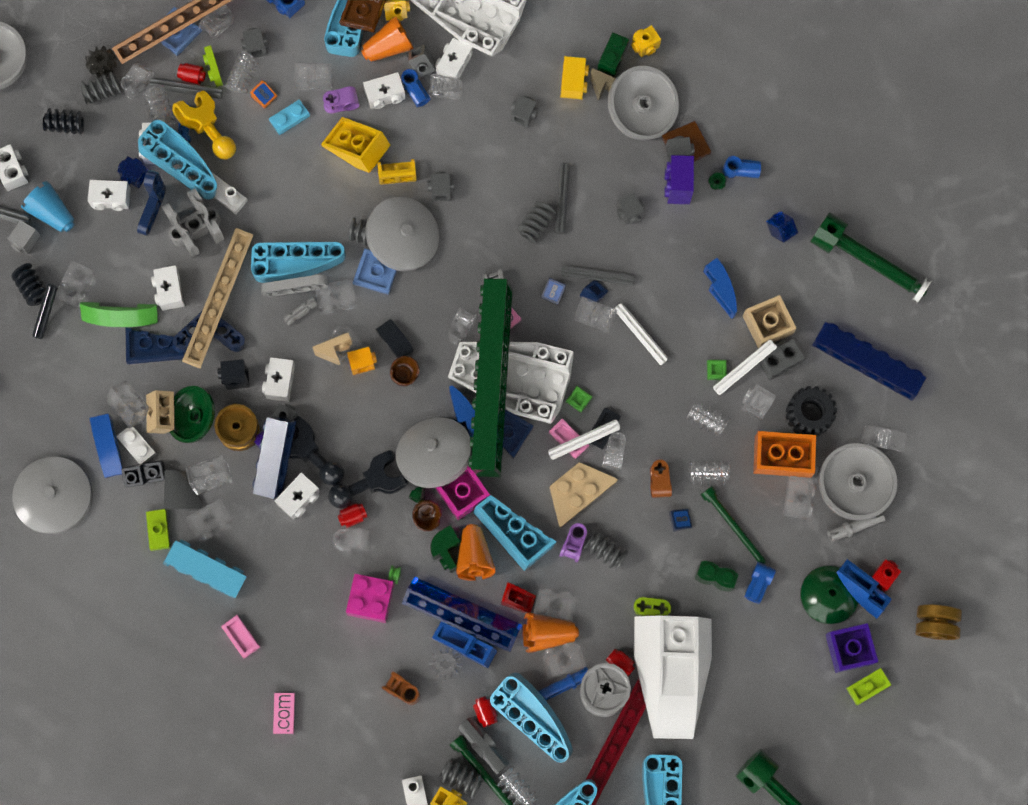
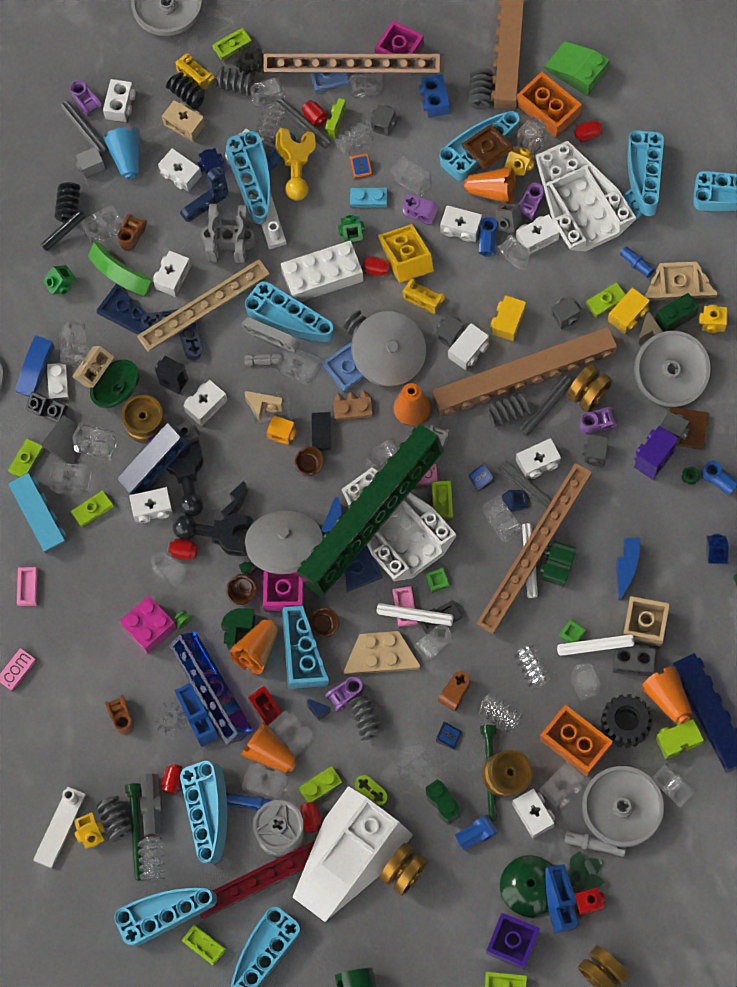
camera: 45 degrees right, 5 degrees down
(58, 101) = (194, 71): none -> yellow hinge
(73, 356) = (59, 280): none -> green brick
(74, 57) = (231, 44): none -> lime plate
(80, 149) = (183, 120): none -> tan brick
(105, 272) = (132, 229): none -> dark orange piece
(247, 533) = (92, 509): none -> lime plate
(296, 152) = (351, 228): none -> green brick
(297, 204) = (322, 272): none -> white brick
(339, 171) = (375, 266): none -> red brick
(365, 441) = (237, 496): none -> black slope
(405, 302) = (352, 407): none -> medium nougat plate
(429, 37) = (530, 204): none -> medium lavender piece
(454, 269) = (412, 405): none -> orange cone
(465, 190) = (468, 347): none -> white brick
(481, 145) = (508, 318): none -> yellow brick
(515, 496) = (324, 622): none -> reddish brown hair
(525, 182) = (524, 371): none -> medium nougat brick
(535, 329) = (442, 499): none -> lime plate
(547, 80) = (605, 300): none -> lime plate
(550, 33) = (637, 261): none -> blue pin
(561, 571) = (318, 709): none -> dark blue slope
(591, 161) = (589, 388): none -> pearl gold wheel
(591, 236) = (544, 452): none -> white brick
(595, 28) = (677, 279): none -> tan wing
(608, 631) = (320, 785): none -> lime plate
(615, 182) = (601, 419): none -> medium lavender piece
(640, 322) = (534, 549): none -> medium nougat plate
(666, 320) = (558, 563): none -> dark green brick
(727, 652) = (405, 869): none -> pearl gold wheel
(751, 517) = (507, 773): none -> pearl gold wheel
(782, 536) = (524, 806): none -> white brick
(831, 368) = (668, 694): none -> orange cone
(856, 403) = (675, 739): none -> lime brick
(865, 552) = (586, 870): none -> clear green plate

